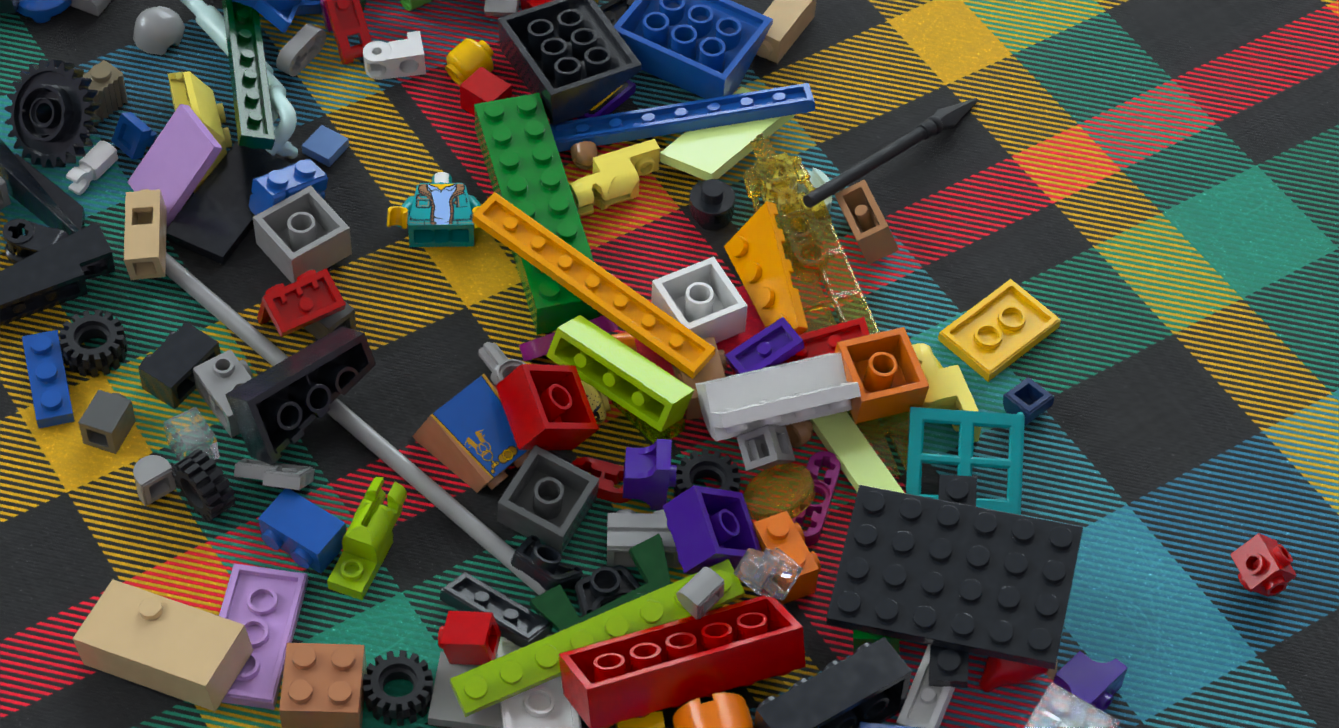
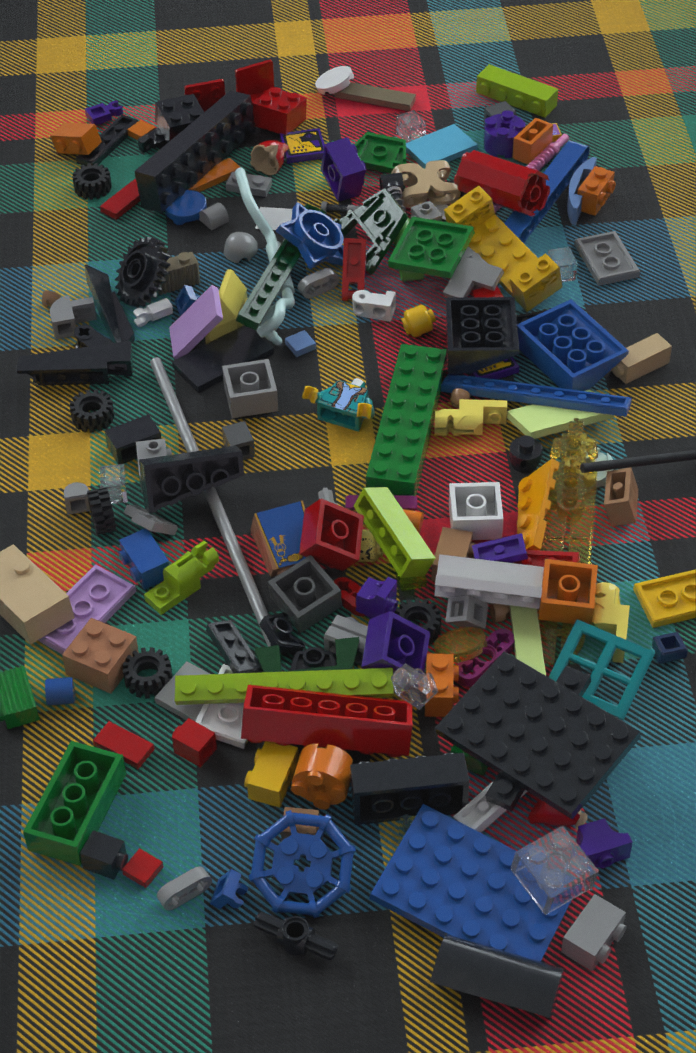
camera: 30 degrees right, 5 degrees down
(48, 379) = (54, 424): blue plate -> none
(107, 421) = (71, 457): dark grey brick -> none
(145, 234) = (155, 357): tan brick -> none
(284, 183) = (252, 352): blue brick -> none
(301, 302) = (221, 423): red bracket -> none
(469, 637) = (204, 656): red brick -> none
(483, 87) = (416, 336): red brick -> none
(594, 285) = (407, 473): light orange plate -> none
(701, 592) = (359, 680): light grey brick -> none

